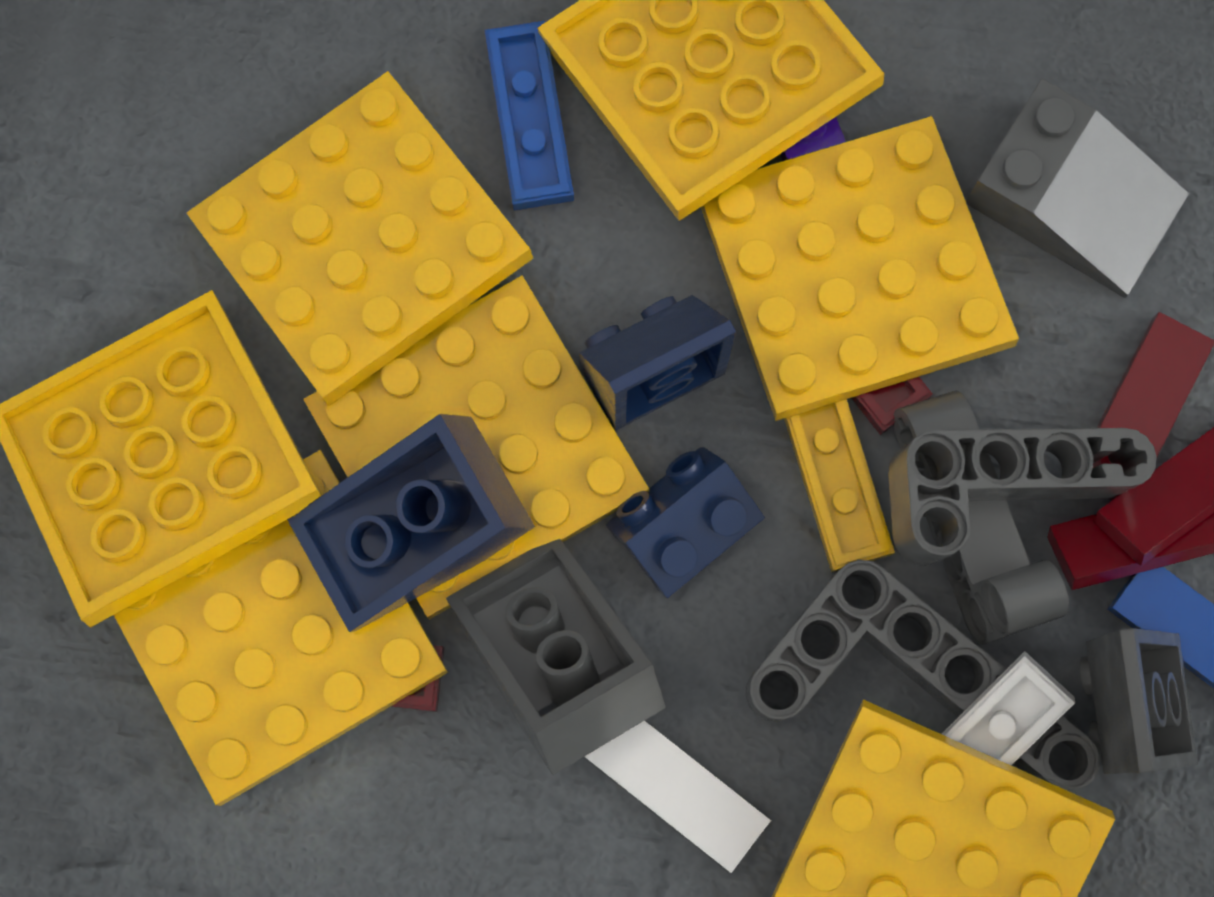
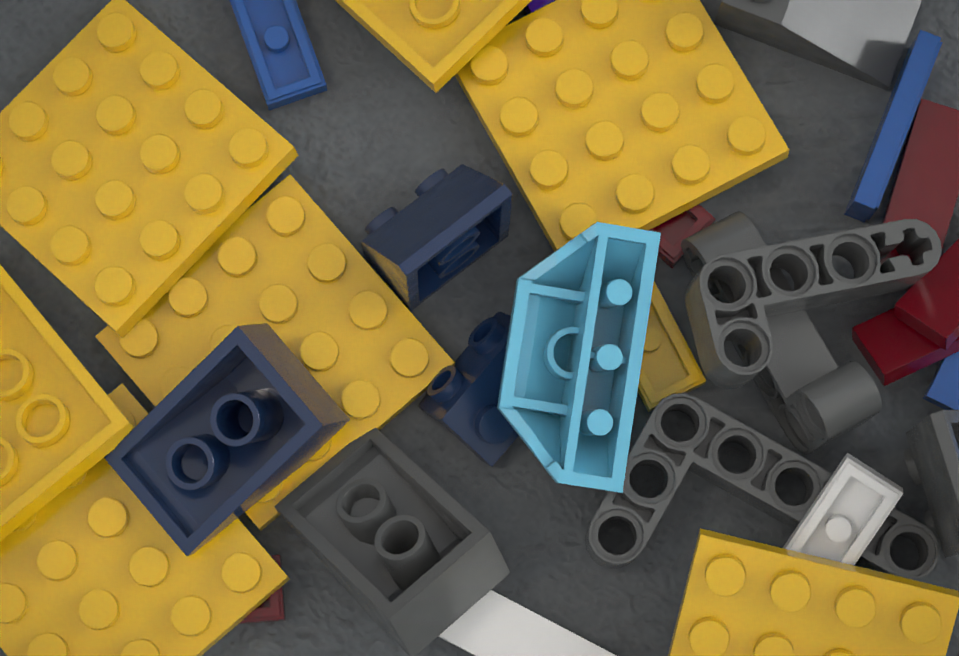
camera: 15 degrees left, 0 degrees up
(775, 503) = (580, 353): none -> medium azure wedge
(1126, 334) = (893, 126): none -> blue tile

